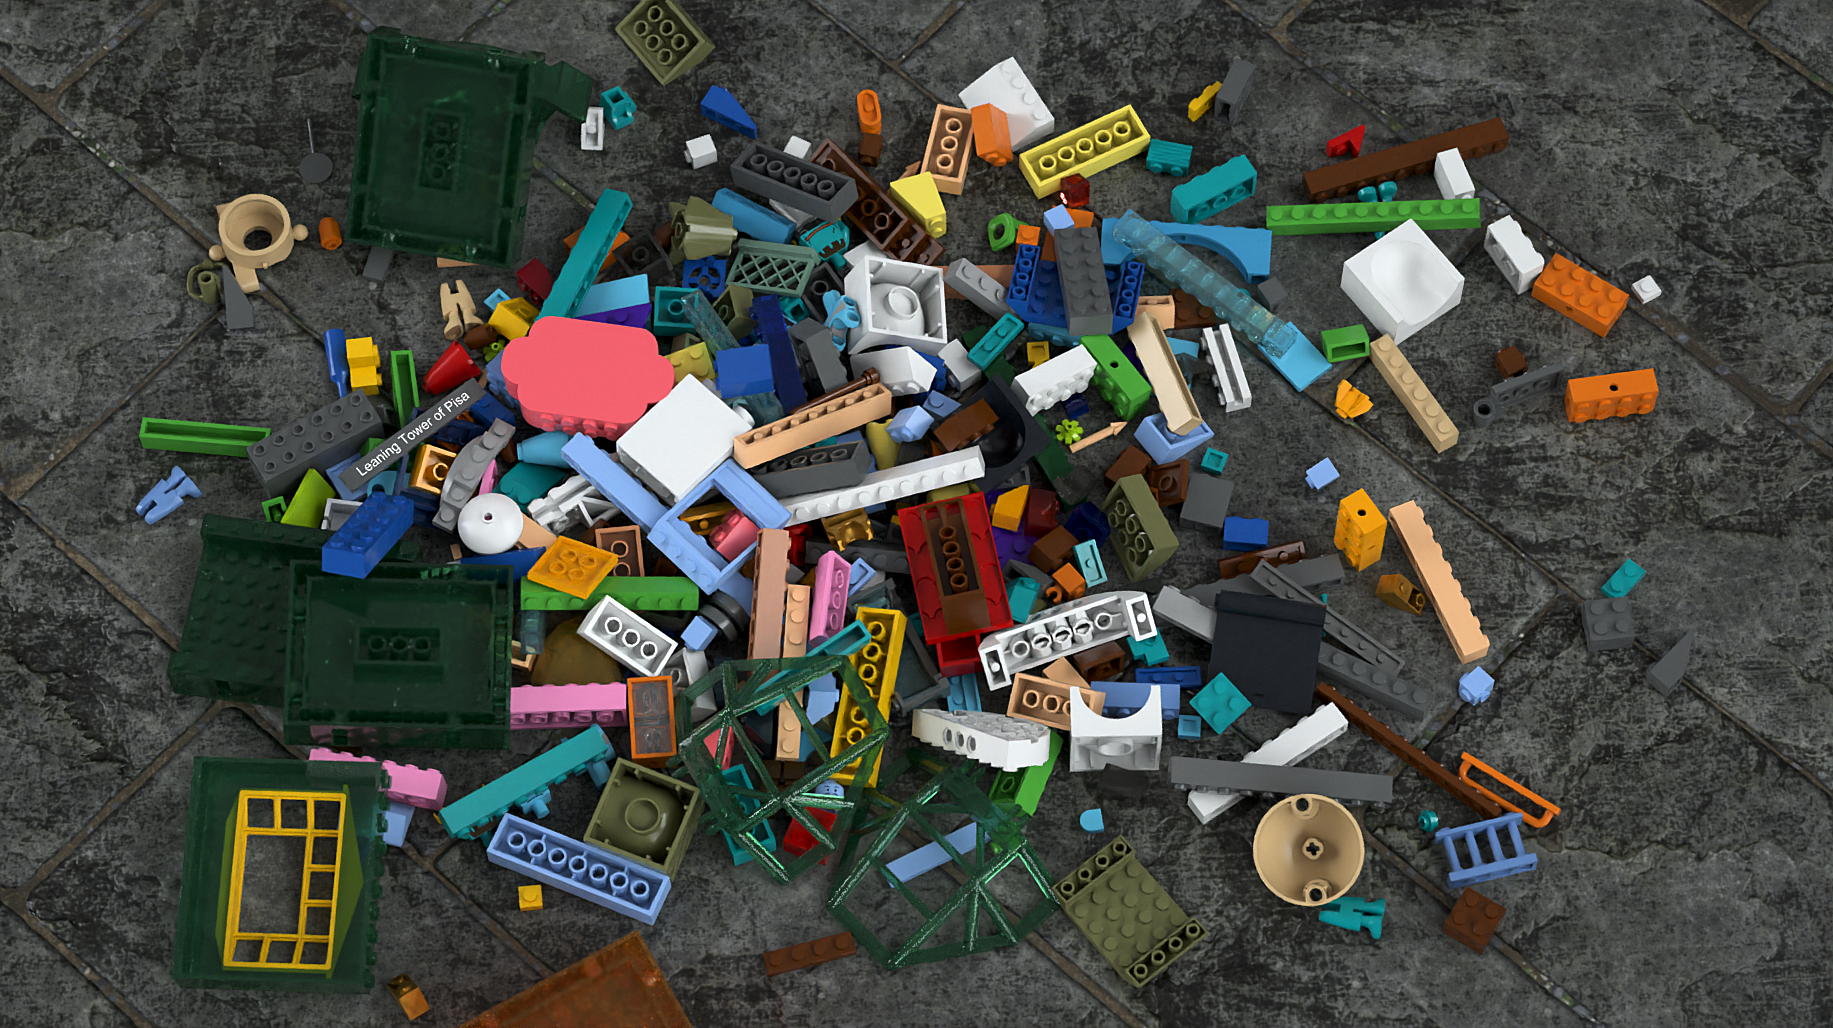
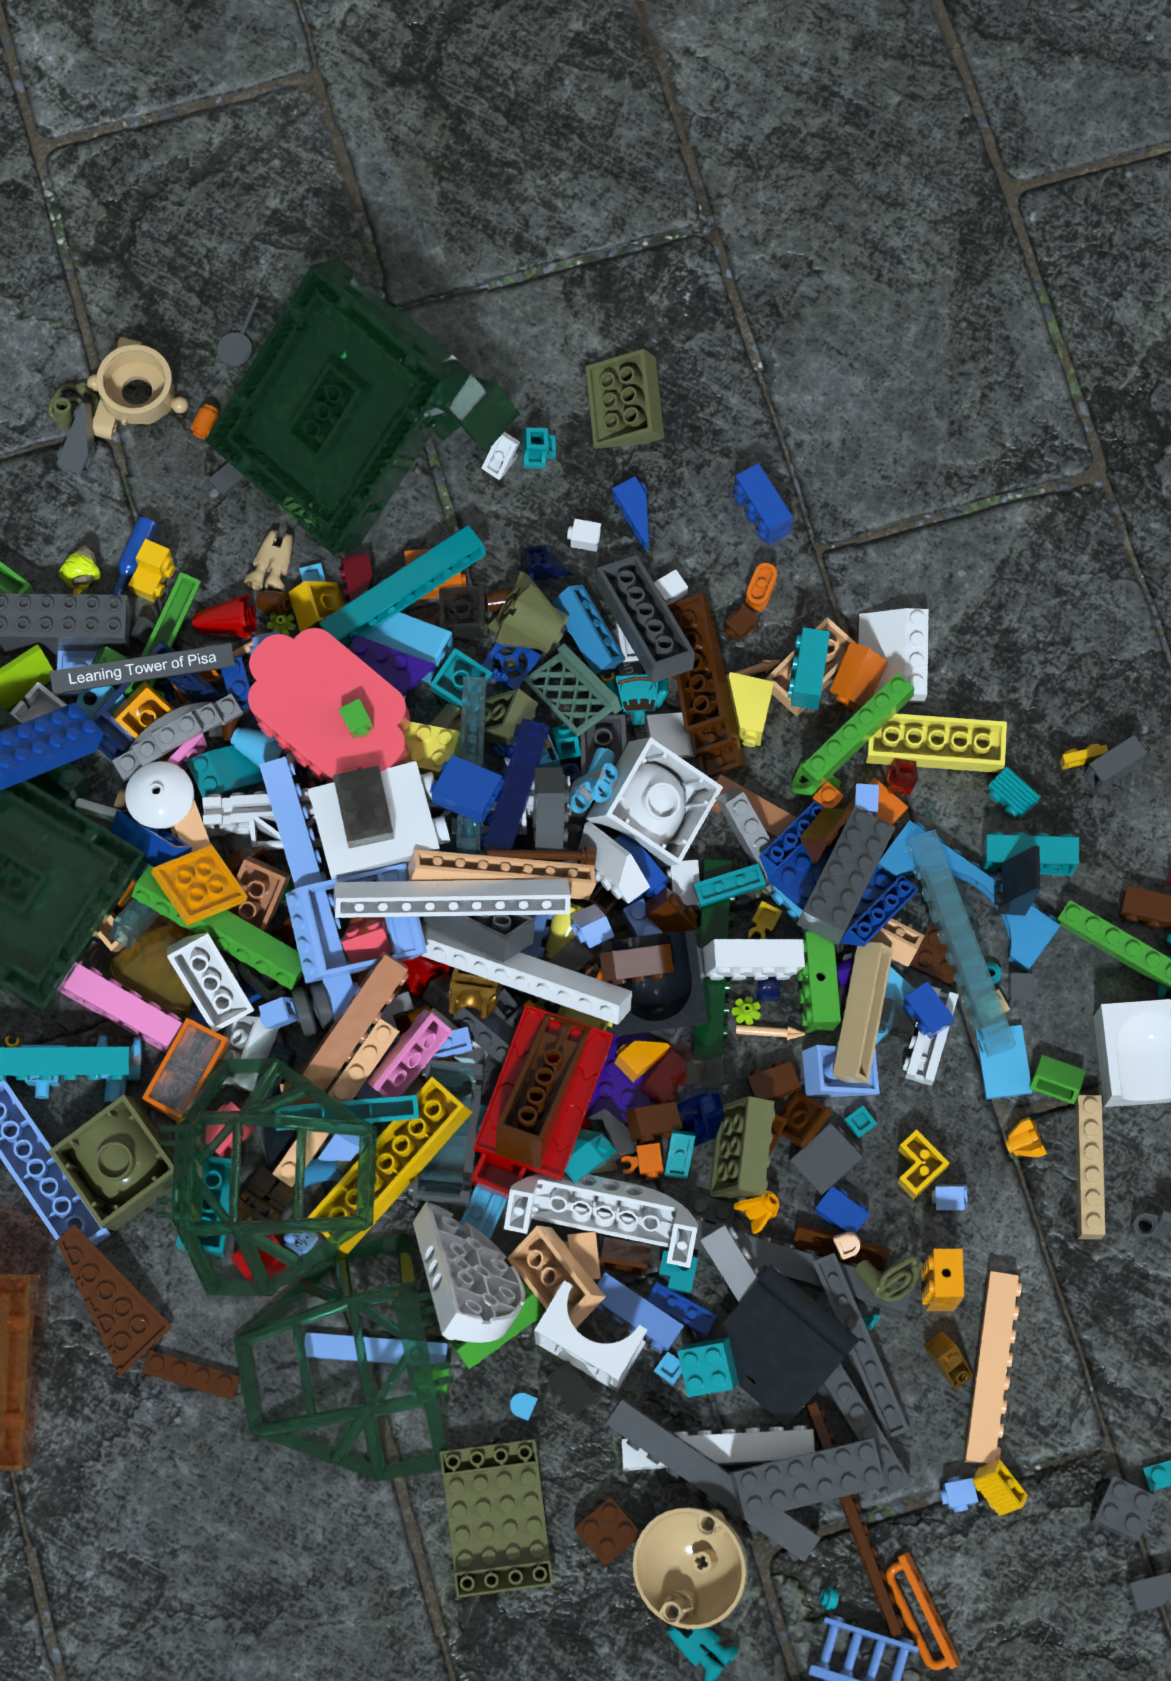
camera: 30 degrees right, 10 degrees up
(301, 399) = (80, 570): none -> neon yellow hair
(622, 365) = (356, 719): none -> bright green brick
(672, 427) = (363, 807): none -> clear smoke brick
(680, 191) = (543, 564): none -> clear blue slope
(718, 934) = (119, 1311): none -> reddish brown wing
(786, 459) = (451, 898): none -> white brick
(829, 51) = (762, 505): none -> blue brick
(952, 144) = (808, 668): none -> teal brick
(959, 386) = (670, 913): none -> reddish brown brick
(1020, 171) = (857, 730): none -> bright green brick
(1043, 258) = (824, 832): none -> reddish brown slope
(1180, 565) = (759, 1209): none -> light orange brick
(1213, 345) = (927, 1010): none -> blue piece
(1221, 210) = (1018, 882): none -> black slope
(1223, 873) = (607, 1532): none -> reddish brown brick
(1267, 551) = (847, 1244): none -> light nougat tile
(1285, 460) = (925, 1162): none -> yellow brick
(1315, 562) = (880, 1284): none -> olive piece
(1354, 733) = (807, 1479): none -> dark grey brick
(1504, 661) = (999, 1488): none -> yellow brick

